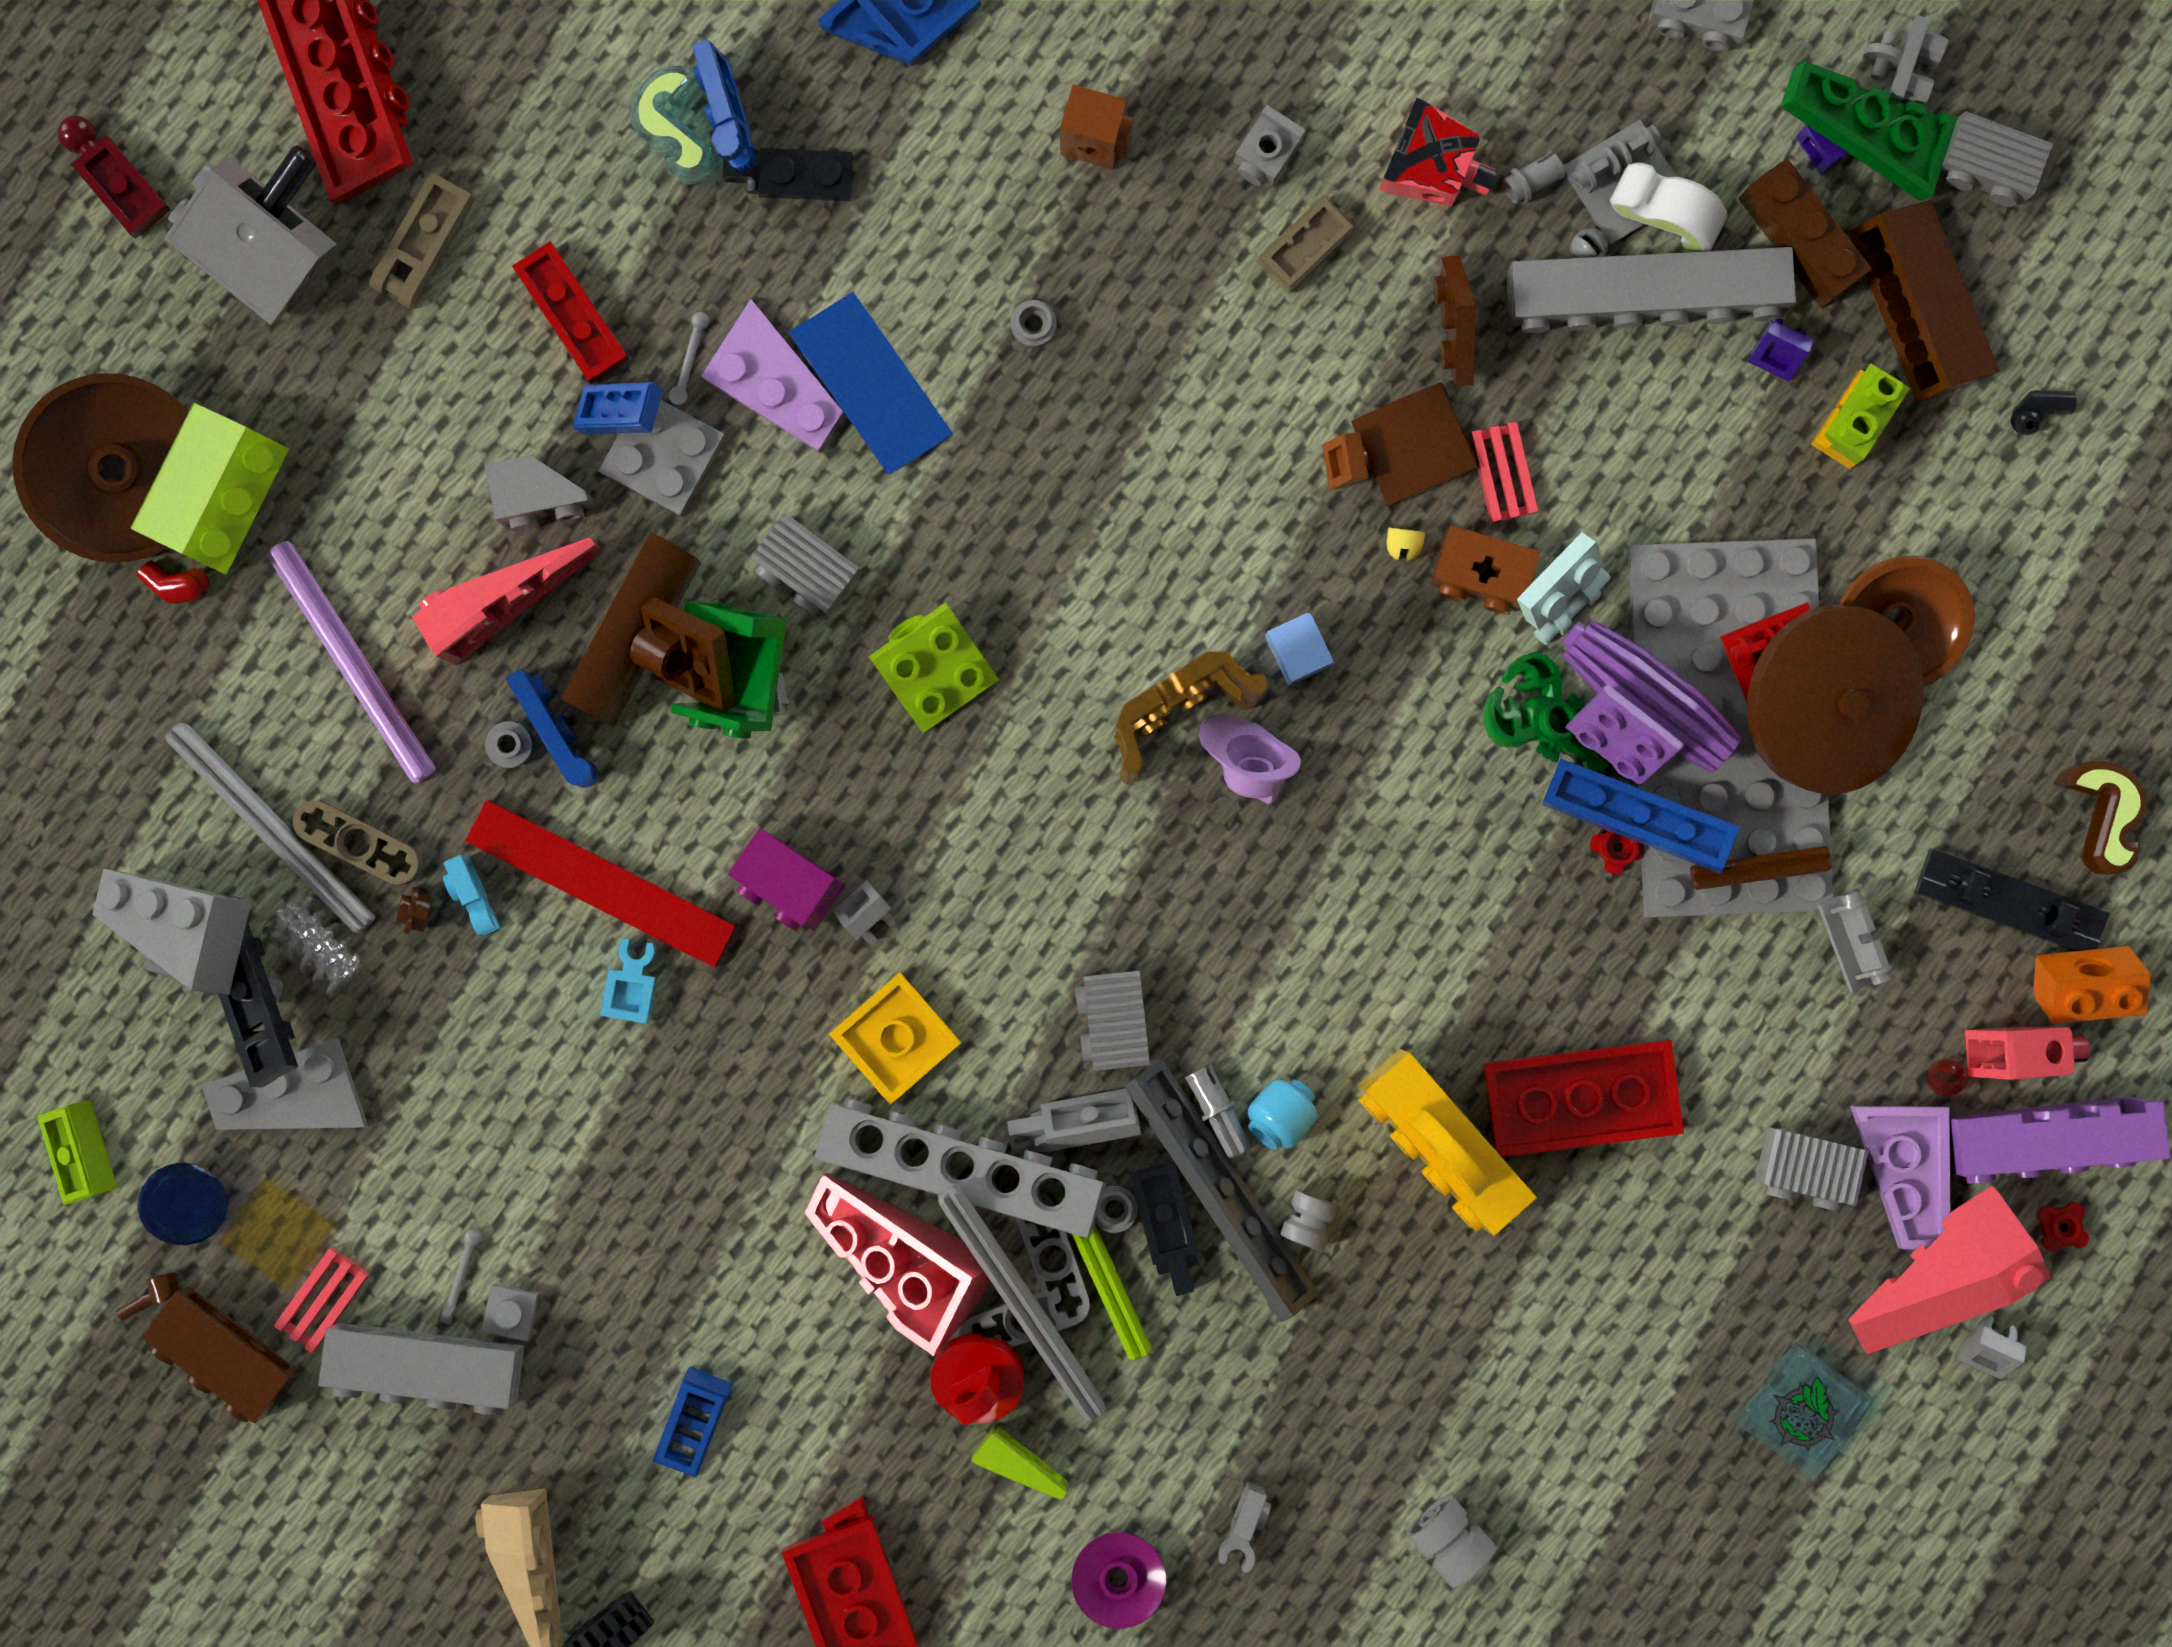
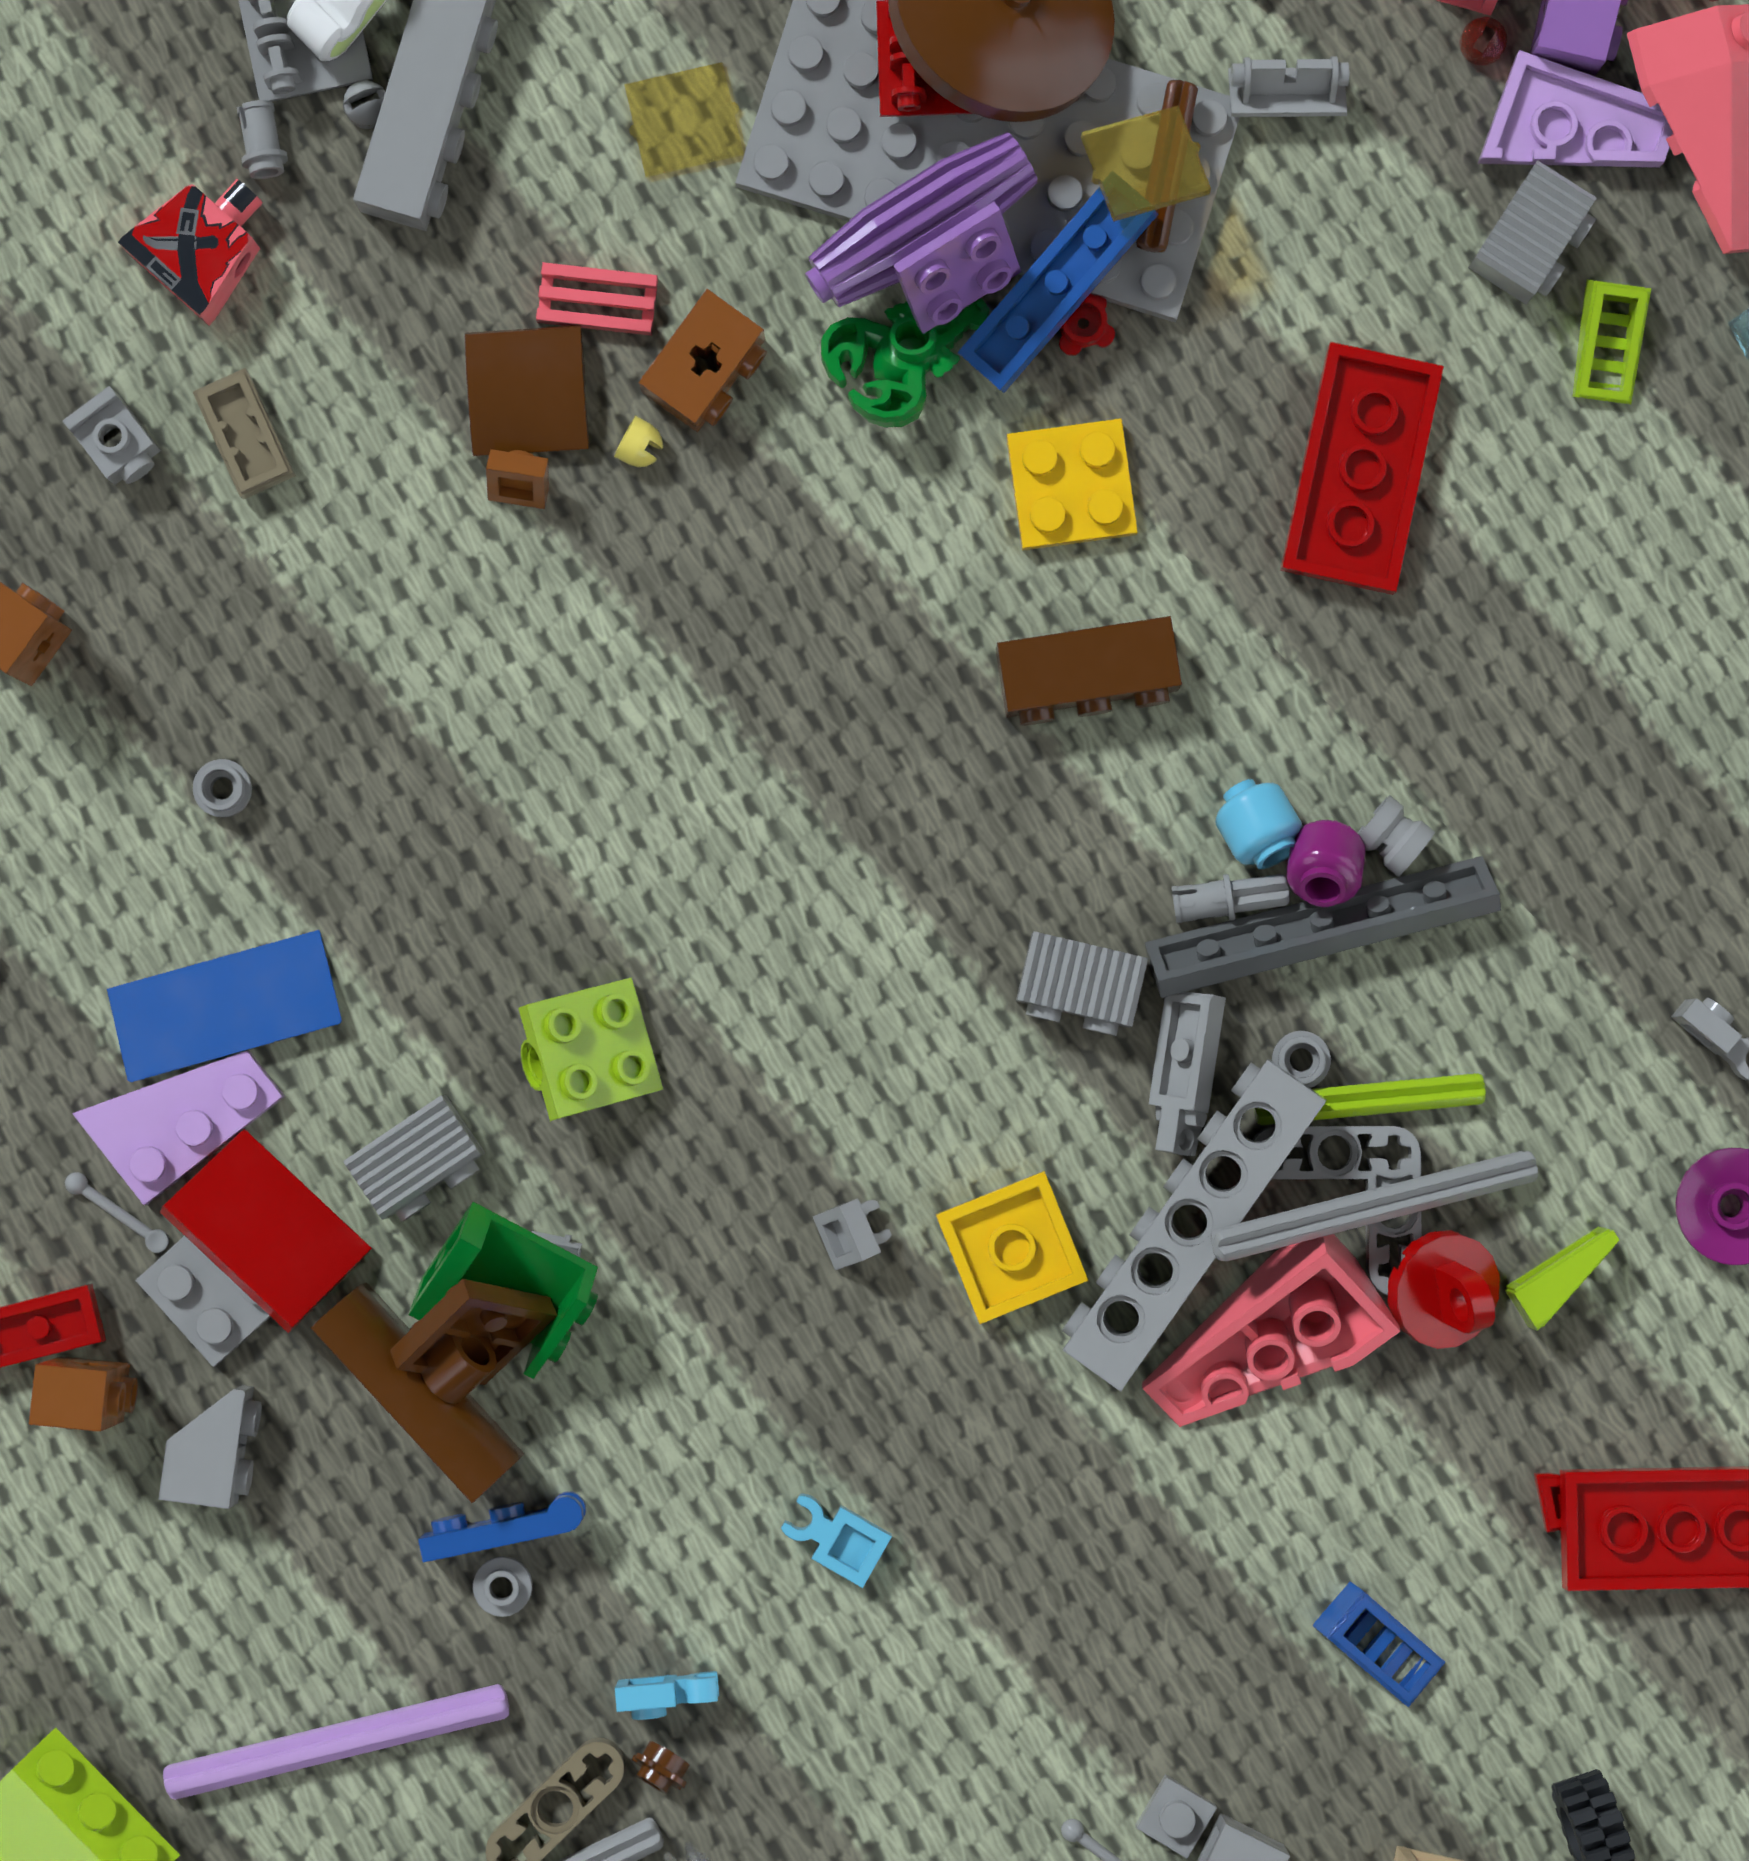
camera: 70 degrees left, 0 degrees up
(476, 610) = (328, 1568): coral wedge -> none
(543, 379) = (82, 1393): none -> dark orange brick
(600, 883) = (705, 1534): red tile -> none
(618, 408) = (147, 1316): blue plate -> none
(713, 473) = (265, 1230): none -> red tile
(786, 880) = (781, 1311): magenta brick -> none
(1166, 1223) = (1339, 1004): black hinge -> none
(1185, 689) = (725, 761): pearl gold piece -> none
(1250, 756) = (828, 713): lavender piece -> none
(1270, 1175) = (1326, 863): none -> magenta head
(1299, 648) = (720, 611): light blue panel -> none
(1353, 943) = (1088, 670): none -> reddish brown brick
(1446, 1141) = (1358, 643): yellow brick -> none
(1457, 316) = (397, 286): reddish brown plate -> none
(1491, 881) = (1071, 484): none -> yellow plate
(1564, 589) = (760, 276): light aqua plate -> none
(1664, 489) = (684, 119): none -> clear yellow piece
(1756, 850) = (1145, 163): none -> clear yellow piece
(1781, 1231) = (1591, 317): none -> lime slope

